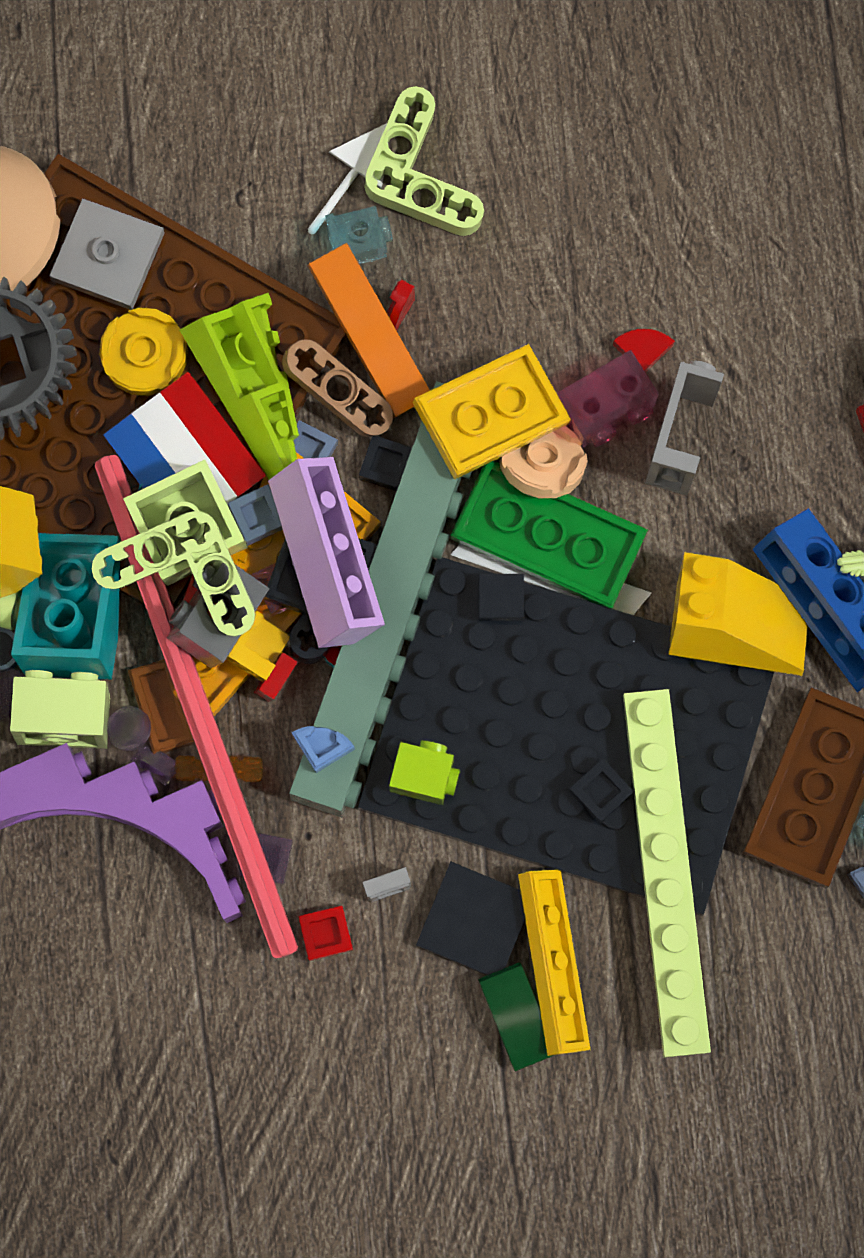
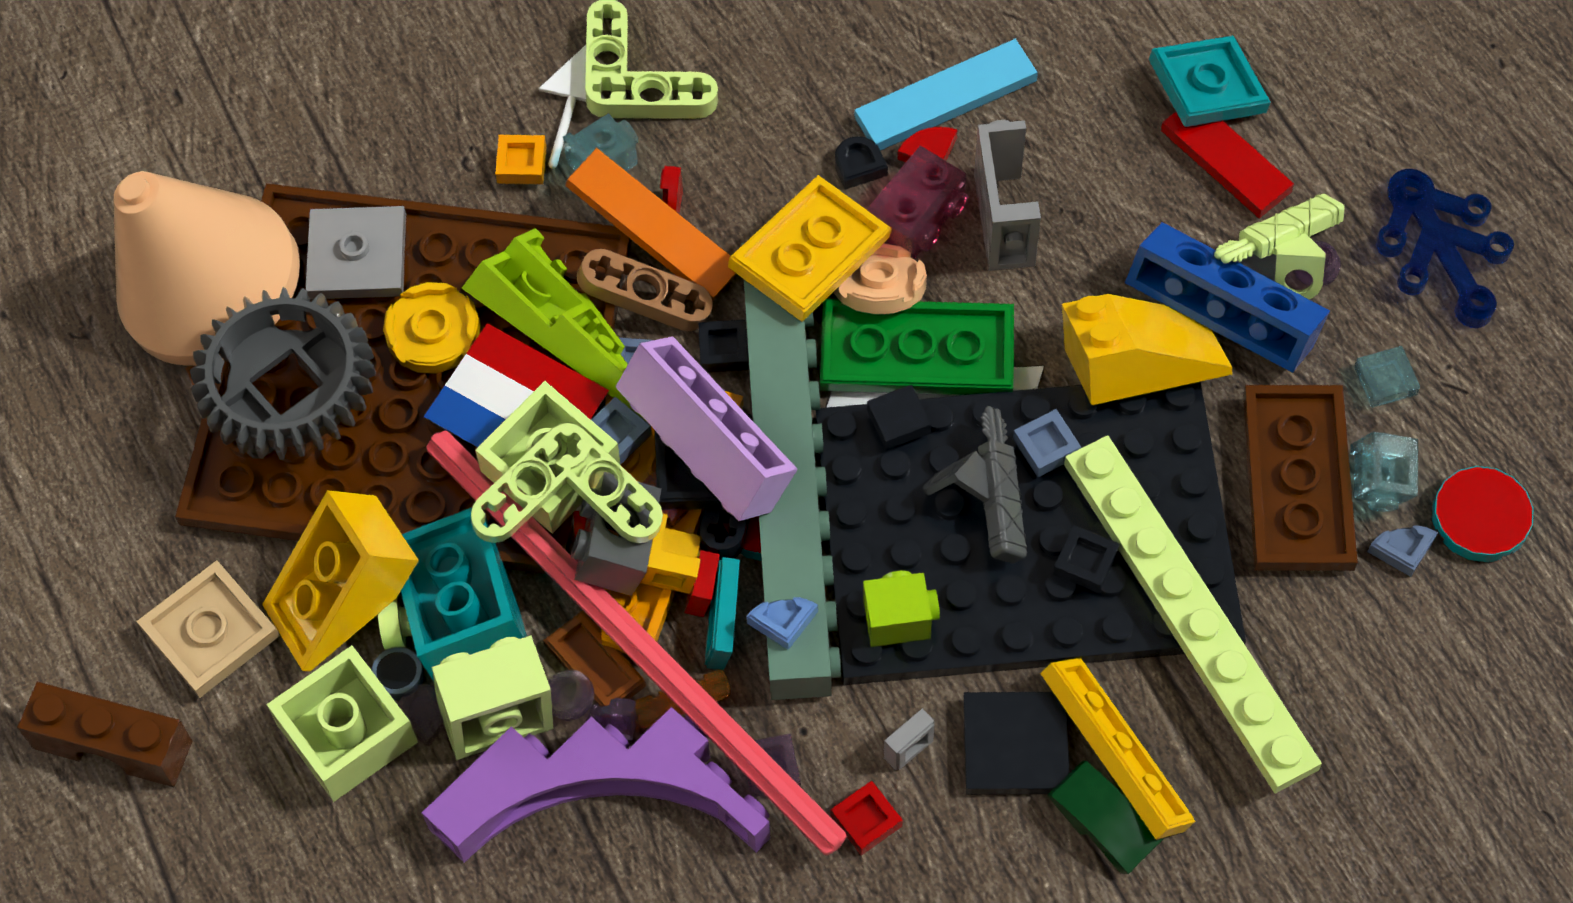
camera: 20 degrees left, 15 degrees down
(281, 711) = (722, 615): none -> teal tile
(285, 216) = (520, 159): none -> light orange plate
(552, 693) = (994, 481): none -> dark grey piece
(577, 335) = (859, 162): none -> black tile
(615, 672) = (1046, 442): none -> sand blue tile
(681, 301) = (946, 94): none -> medium azure tile

